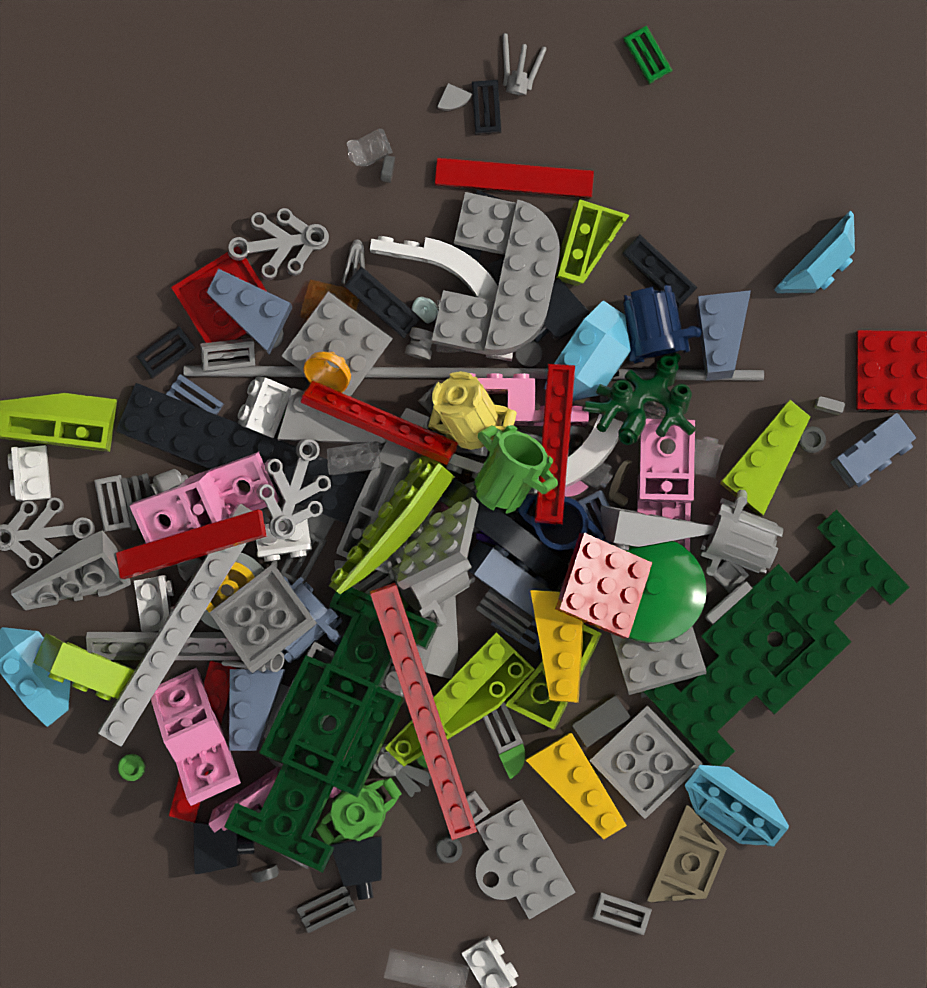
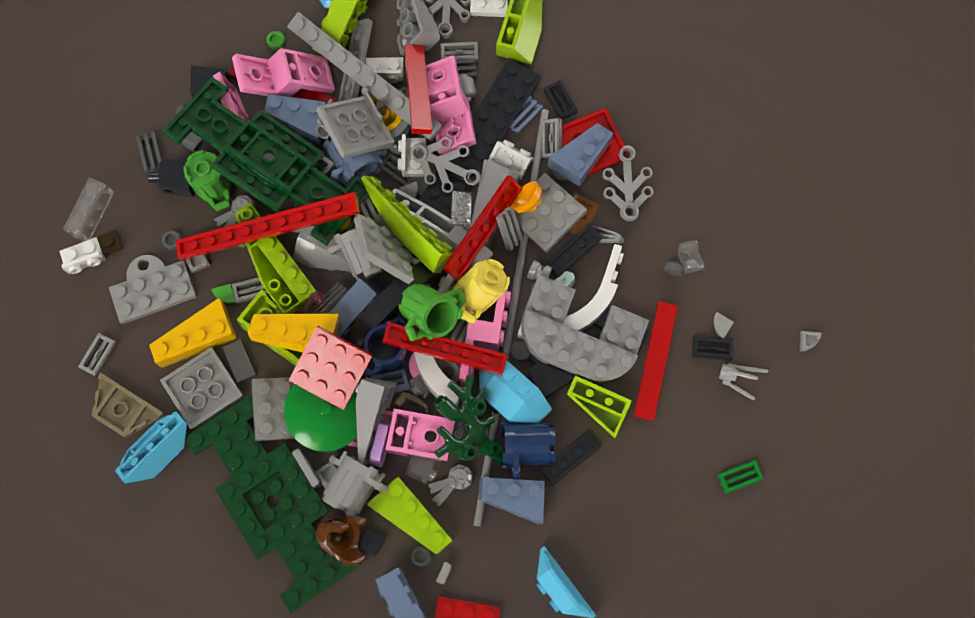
camera: 100 degrees right, 10 degrees down
(205, 616) = (365, 91): none -> light grey hinge
(330, 536) = (410, 189): none -> light grey tile
(367, 387) = (511, 228): none -> light grey tile
(465, 934) = (109, 243): none -> dark brown plate
(504, 628) = (318, 298): none -> clear pink piece
(690, 511) = (378, 452): none -> lavender piece
(707, 406) = (459, 478): none -> light grey piece
(804, 505) = (371, 541): none -> black tile
(811, 539) = (340, 538): none -> reddish brown hair

